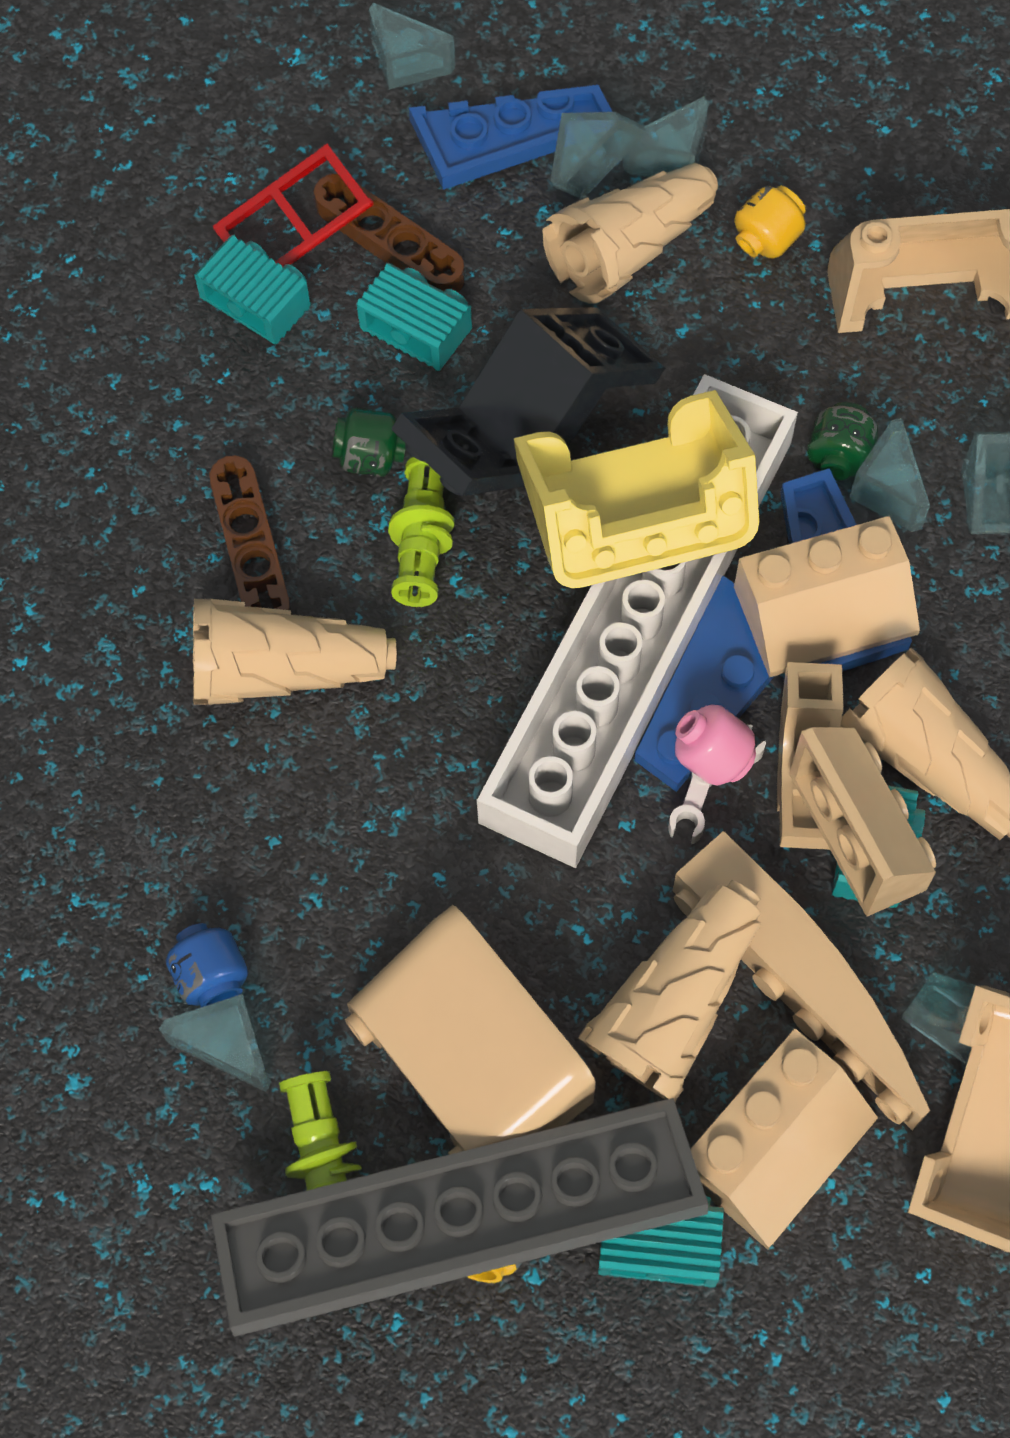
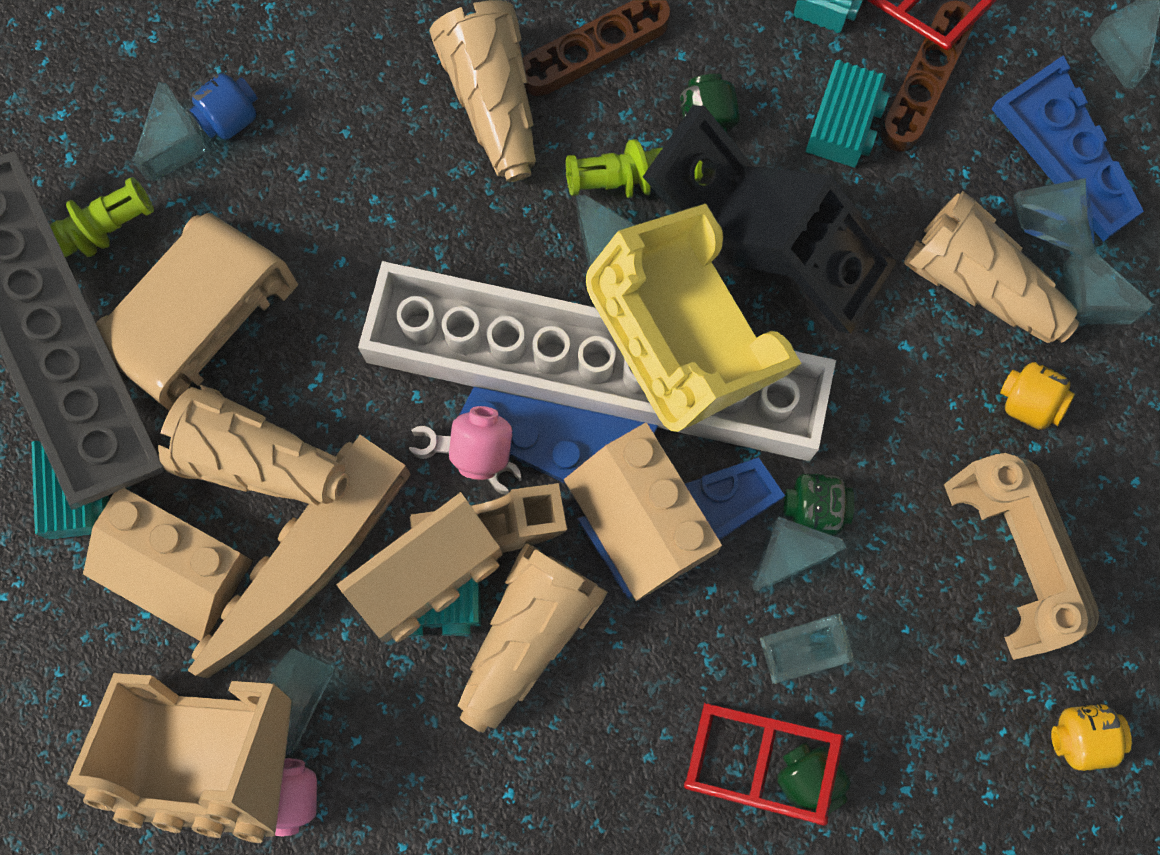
camera: 75 degrees right, 10 degrees up
(498, 582) = (597, 226): none -> clear light blue slope

